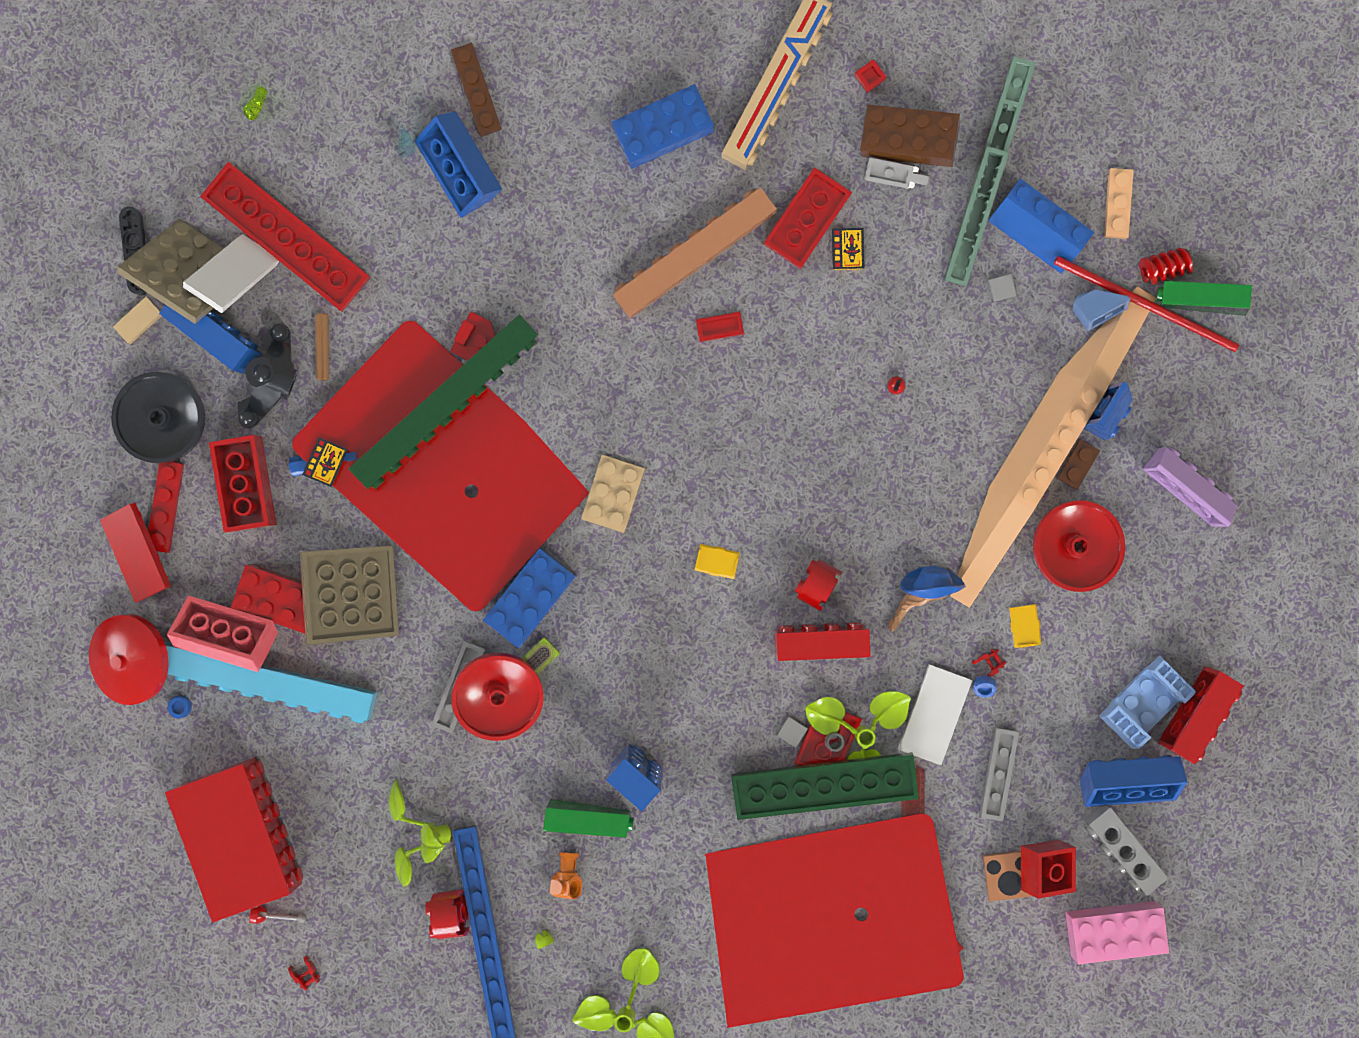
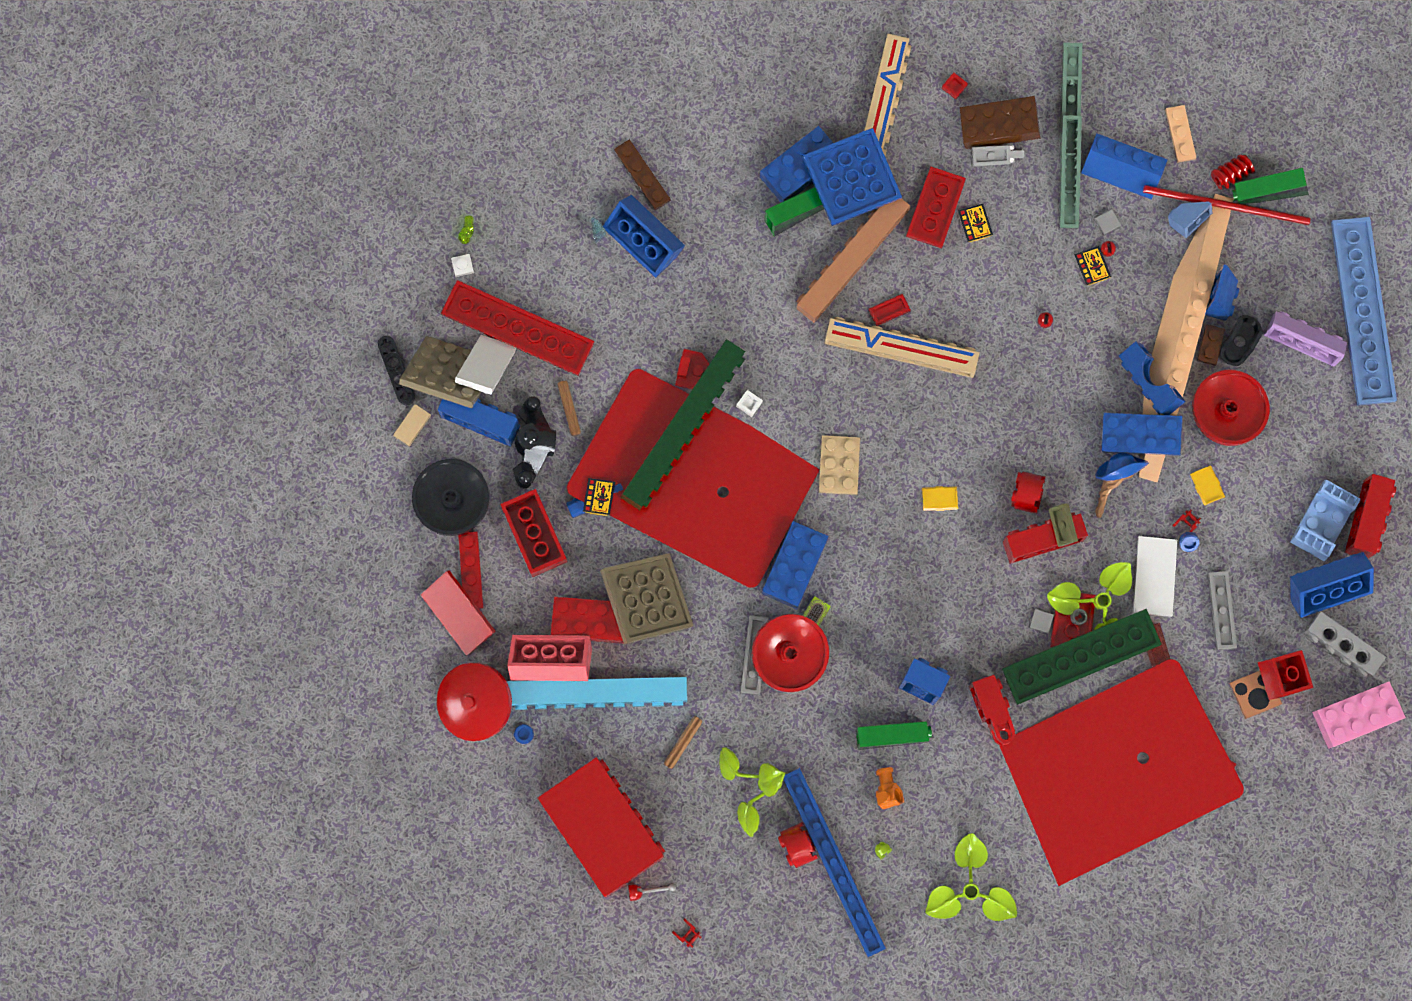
camera: 15 degrees left, 10 degrees down
(241, 145) = (462, 265): none -> white plate
(354, 762) = (683, 742): none -> medium nougat axle
(529, 395) = (749, 403): none -> white plate
(645, 178) = (793, 211): none -> green slope
(708, 819) = (993, 708): none -> red brick
(716, 157) = (852, 176): none -> blue plate
(721, 376) = (902, 347): none -> tan brick
(844, 640) = (1063, 524): none -> olive plate
(968, 552) = (1142, 434): none -> blue brick
(969, 335) = (1092, 265): none -> piece
(988, 319) = (1104, 248): none -> red hinge
(988, 464) = (1138, 362): none -> blue arch
(1128, 458) = (1251, 331): none -> black piece
(1266, 470) = (1363, 311): none -> medium blue plate

